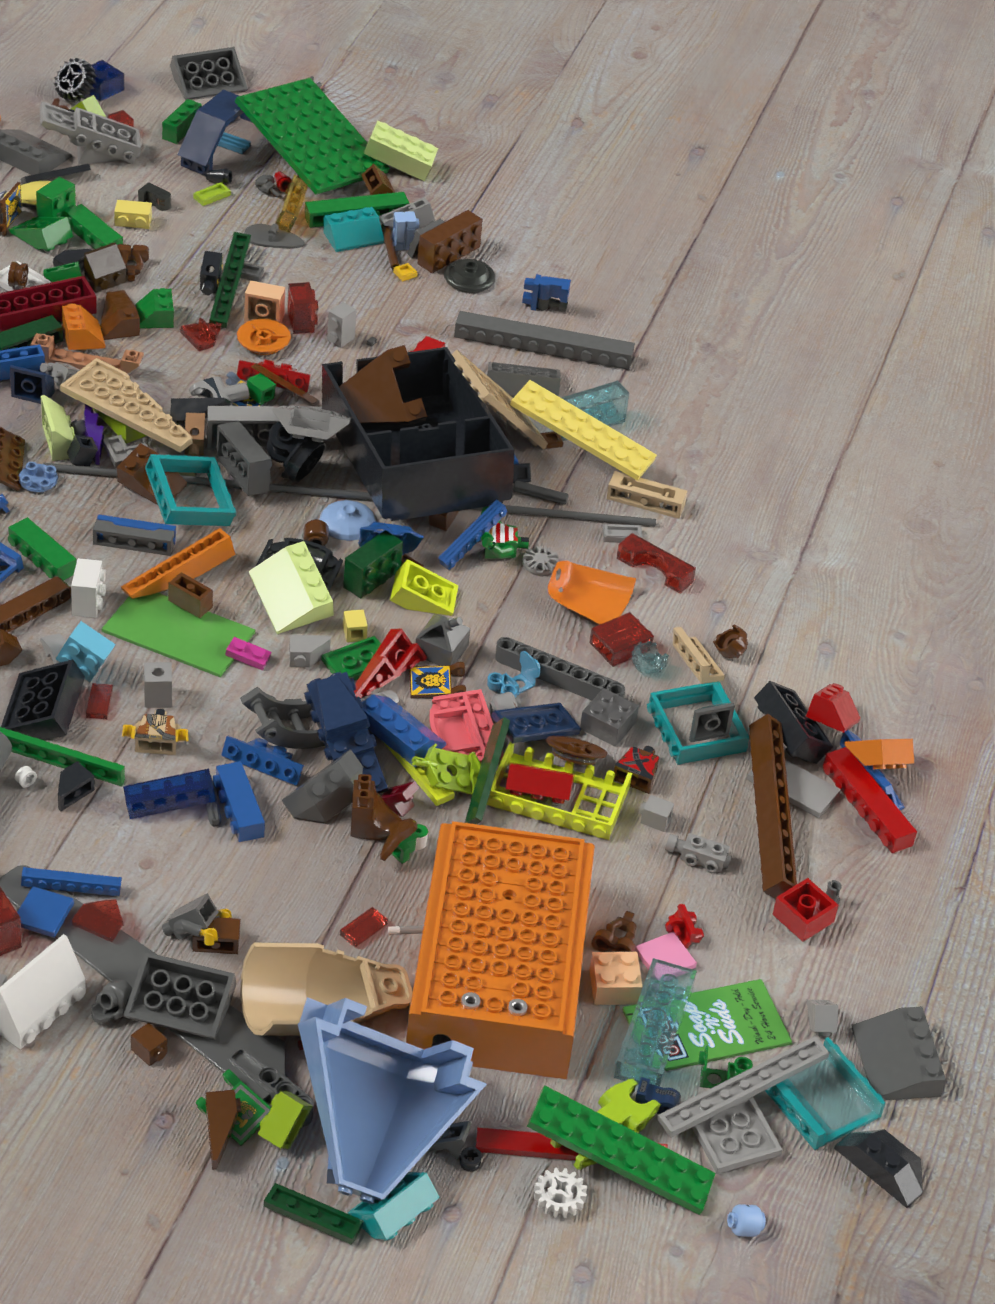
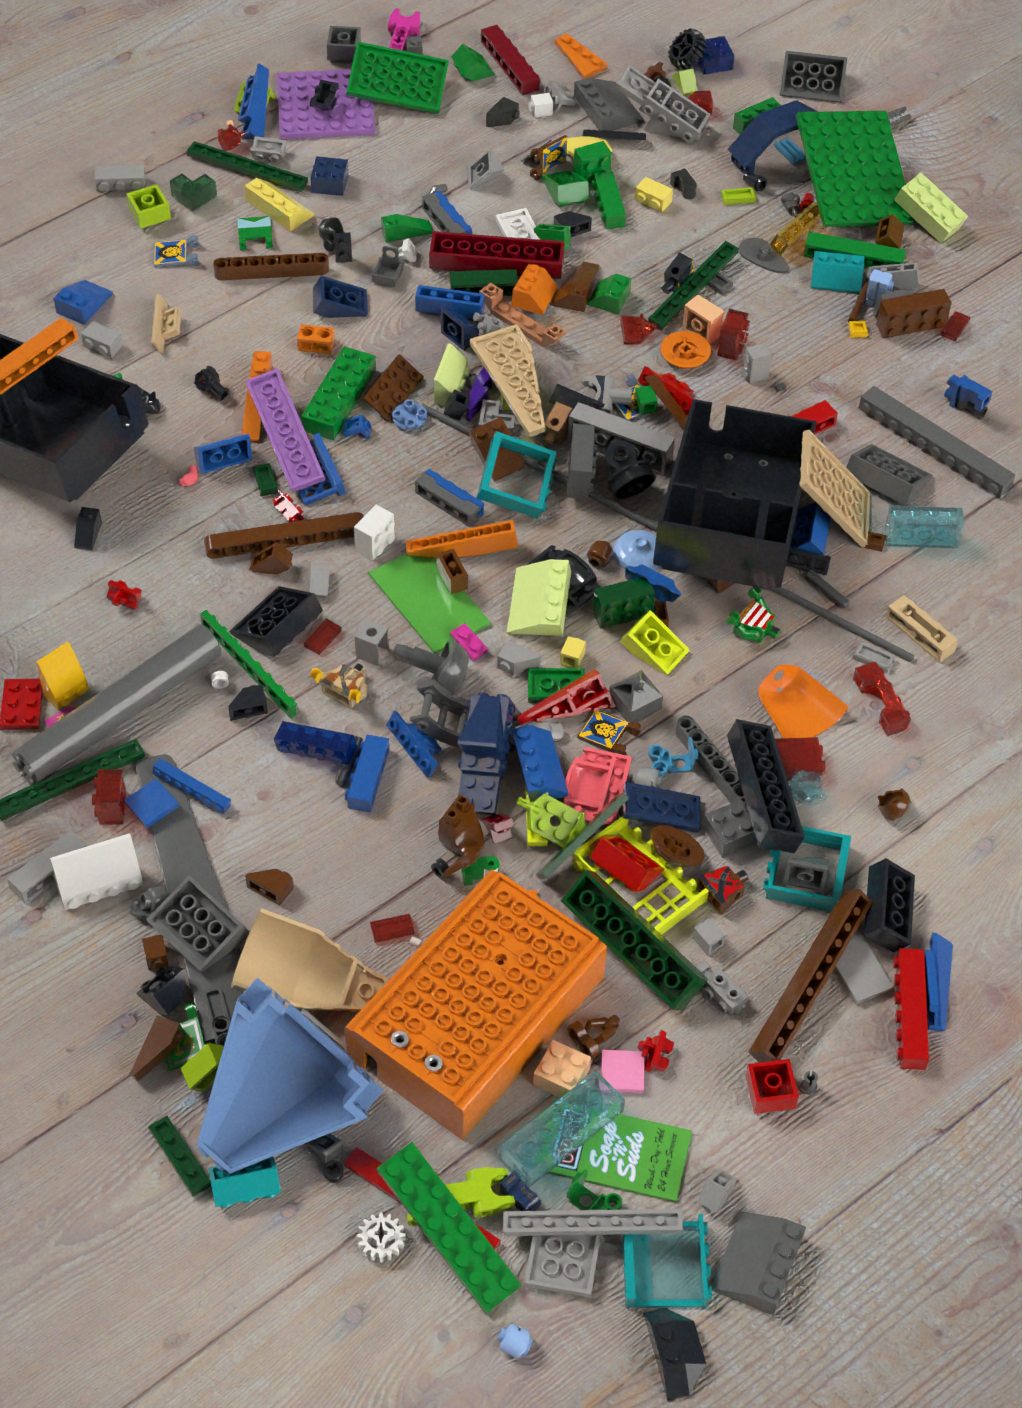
camera: 35 degrees right, 10 degrees up
(18, 275) = (511, 222): reddish brown wheel -> none
(41, 549) = (366, 481): green brick -> none
(87, 649) = (331, 589): medium azure brick -> none
(100, 919) = (190, 828): clear red slope -> none
(104, 268) = (590, 239): slope -> none
(138, 253) = (621, 230): reddish brown piece -> none
(185, 1072) = (164, 990): none -> black slope
(194, 918) = (257, 860): dark grey torso -> none
(249, 670) = (447, 670): none -> dark grey piece
(310, 421) = (642, 449): light grey wedge -> none
(326, 791) = (435, 795): dark grey wedge -> none
(371, 856) = (439, 867): none -> black bush
(375, 392) = (726, 443): reddish brown wedge -> none
(469, 275) = (914, 352): pearl dark grey piece -> none
(472, 535) = (722, 610): blue piece -> none
(489, 243) = (955, 326): none -> clear red tile
(540, 560) = (779, 653): light grey wheel -> none
(583, 430) = (895, 546): light yellow plate -> none
(615, 842) = (634, 940): none -> dark green brick
(620, 665) = (765, 786): none -> black brick
(696, 657) = (845, 806): tan fence -> none
(833, 708) = (937, 908): red slope -> none
(883, 752) = (951, 970): orange slope -> none

